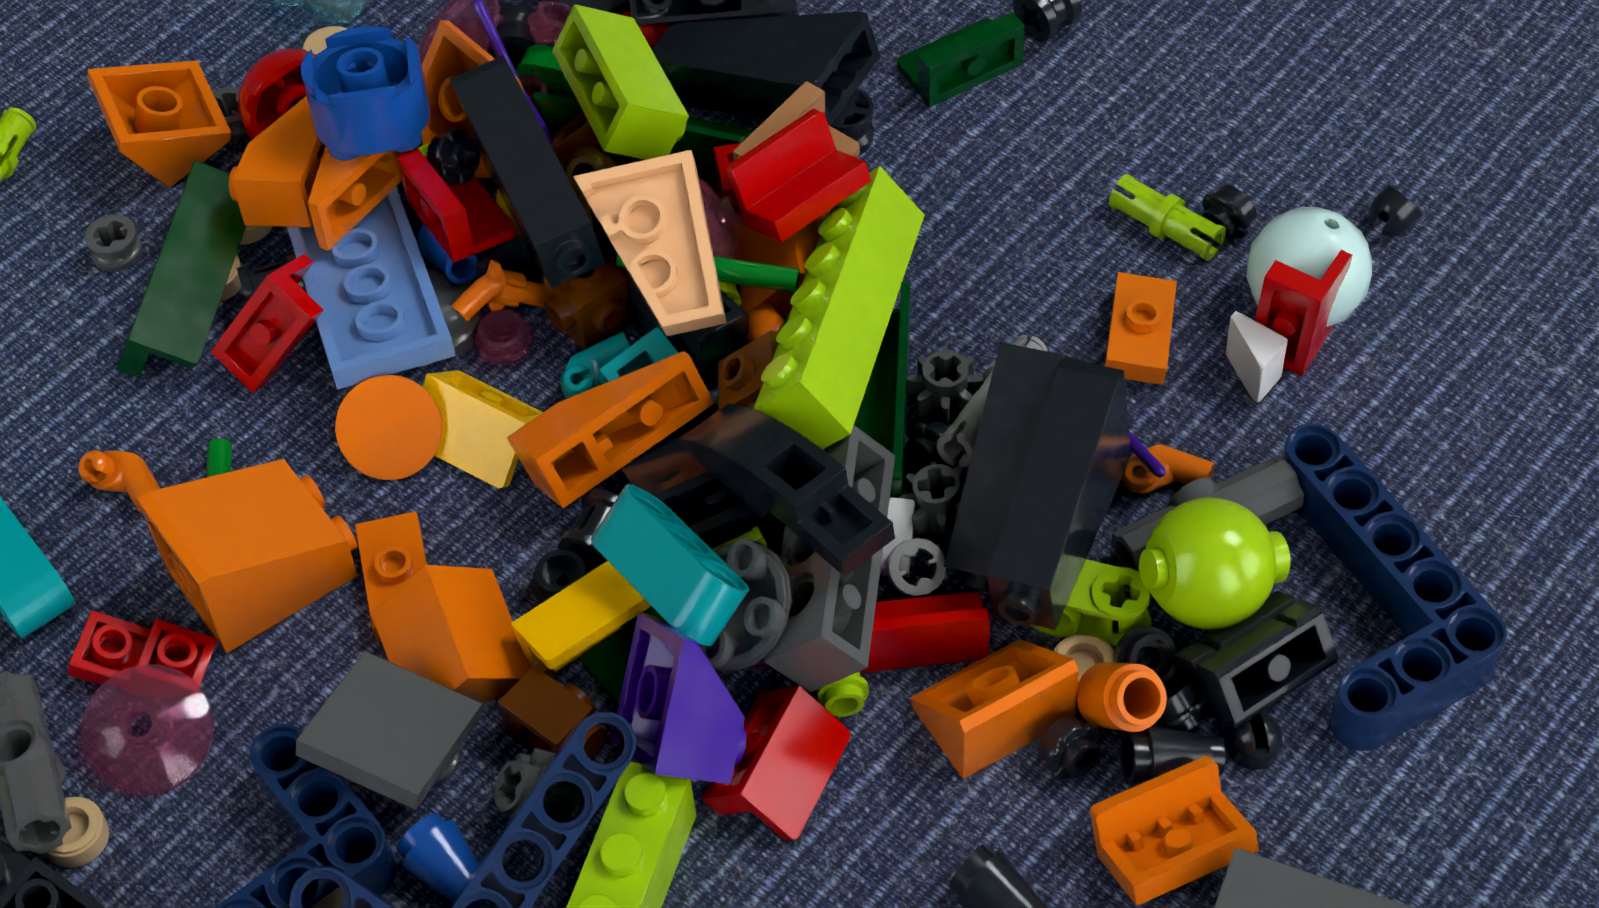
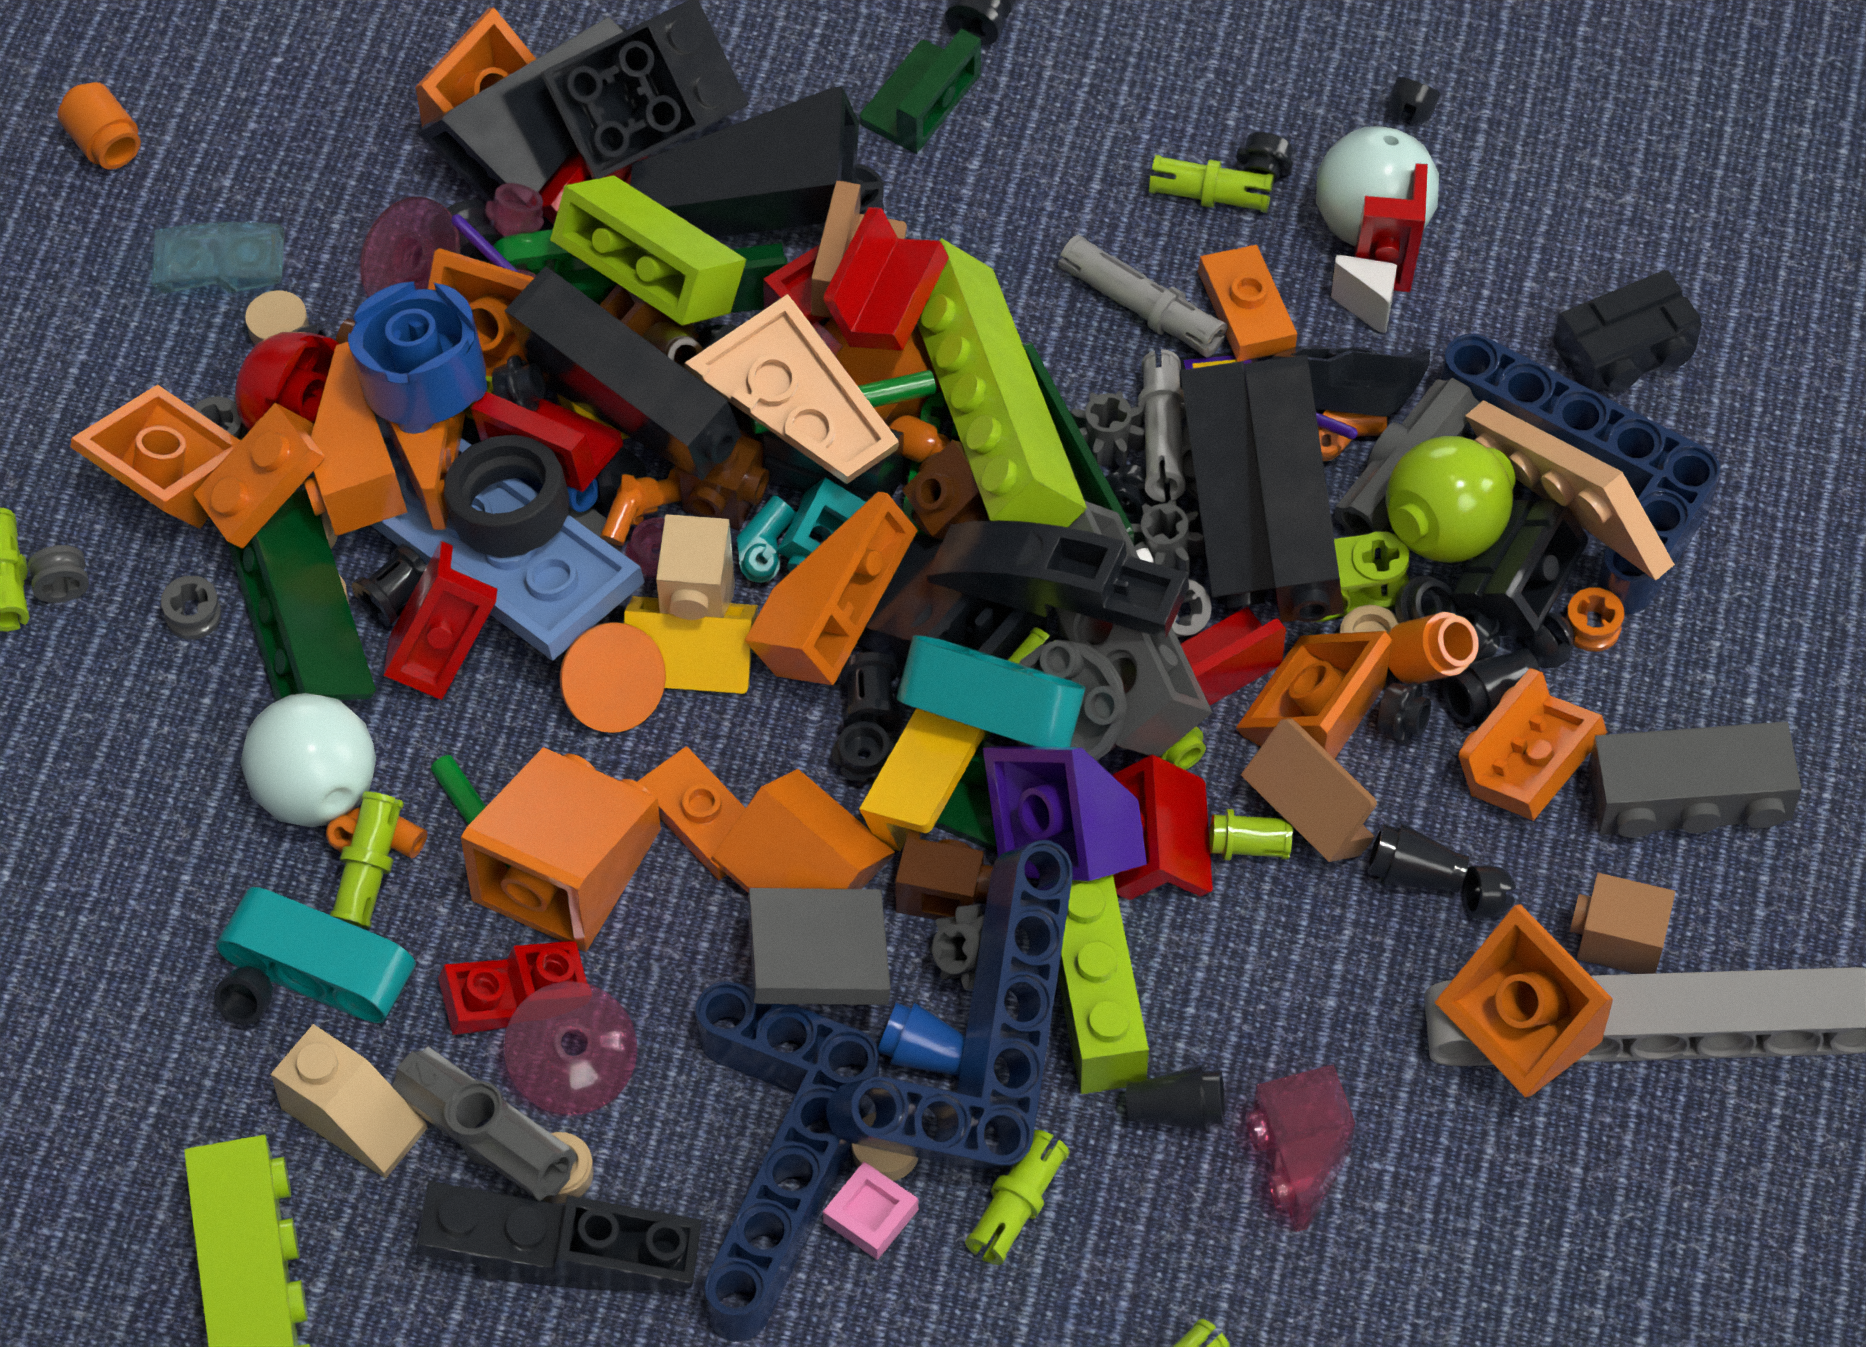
camera: 30 degrees left, 5 degrees up
(31, 177) = (58, 573): none -> dark grey bush
(92, 496) = (367, 859): none -> lime pin
(97, 392) = (308, 759): none -> light aqua piece
(206, 148) = (259, 474): none -> orange bracket
(385, 266) = (511, 531): none -> black tyre
(500, 360) = (695, 567): none -> tan slope
(857, 802) = (1249, 836): none -> lime pin
(928, 787) = (1312, 792): none -> medium nougat panel
(1058, 302) = (1161, 307): none -> light grey pin
(1196, 427) = (1361, 378): none -> black slope
(1310, 718) = (1612, 616): none -> orange bush
(1341, 599) = (1590, 488): none -> light nougat wing
(1486, 486) = (1628, 333): none -> black brick

